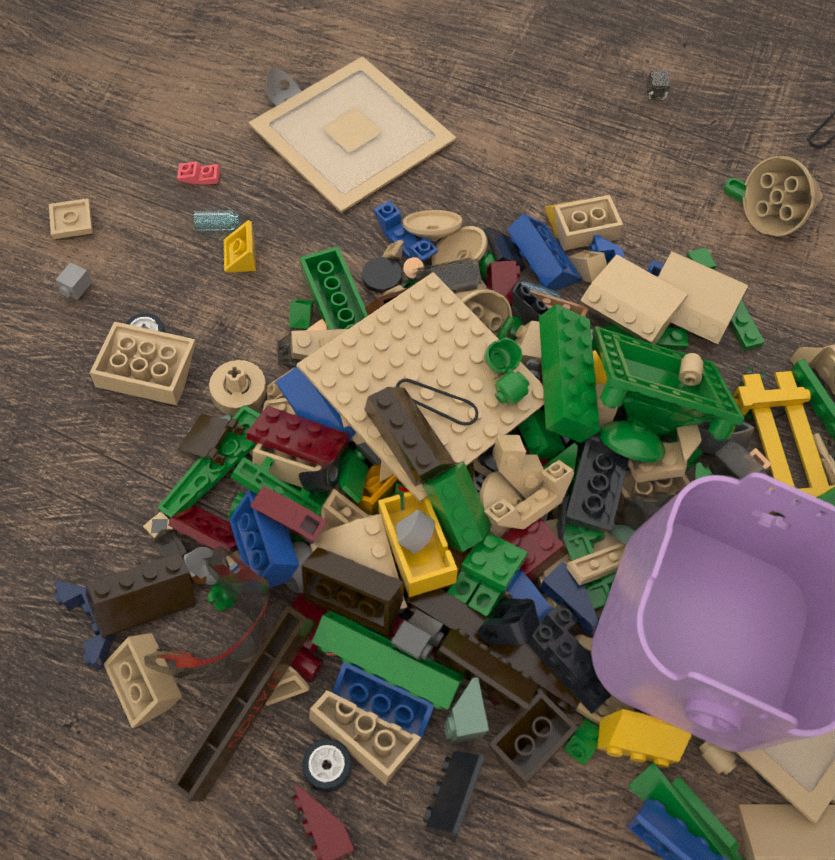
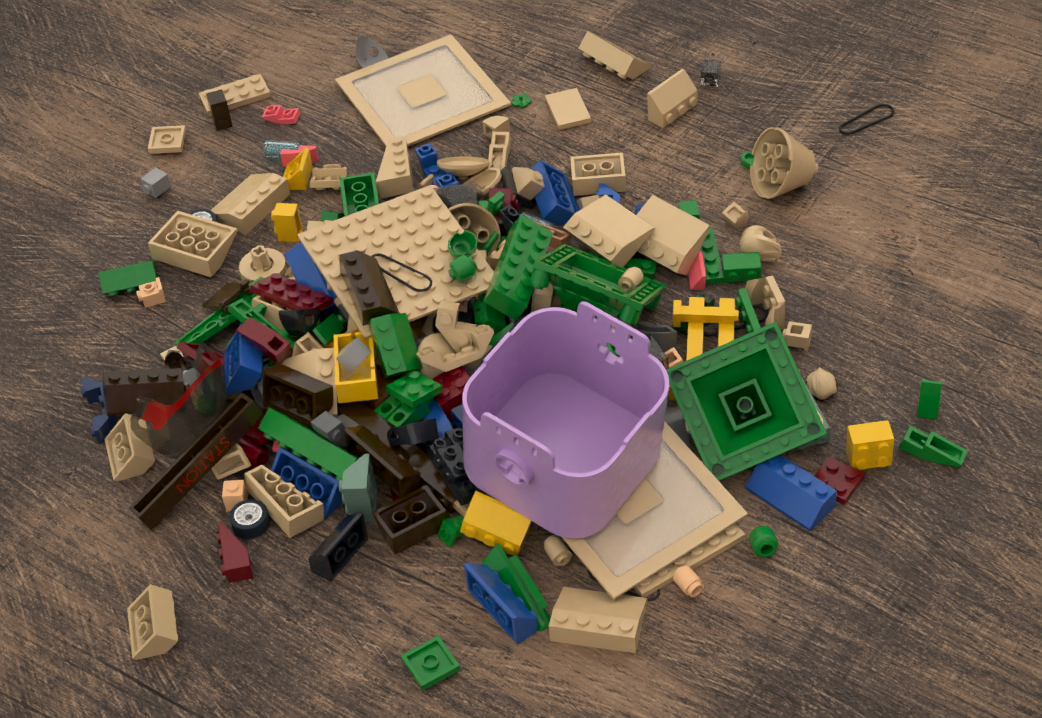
camera: 20 degrees right, 15 degrees down
(74, 420) = (127, 277): none -> green slope
(108, 438) = (151, 293): none -> light nougat brick
(126, 175) = (219, 110): none -> dark brown brick
(135, 151) = (240, 92): none -> tan plate
(195, 294) = (252, 201): none -> tan slope
(224, 229) = (288, 155): none -> coral slope
(251, 322) = (287, 222): none -> yellow piece
(280, 252) = (327, 177): none -> tan slope
(299, 733) = (233, 493): none -> light nougat brick
(360, 240) = (395, 170): none -> tan wedge
(451, 170) = (496, 124): none -> tan brick
(464, 133) = (521, 100): none -> green plant
(466, 201) = (499, 150): none -> tan slope
(503, 286) = (494, 204): none -> green plate
(516, 241) = (527, 182): none -> tan slope
(519, 140) = (567, 109): none -> tan tile
(548, 71) = (612, 56): none -> tan slope
(633, 122) = (671, 99): none -> tan slope
(736, 340) = (697, 273): none -> coral slope
(749, 260) = (736, 216): none -> tan plate
(781, 327) = (741, 267): none -> green brick
(789, 298) = (754, 241): none -> tan helmet

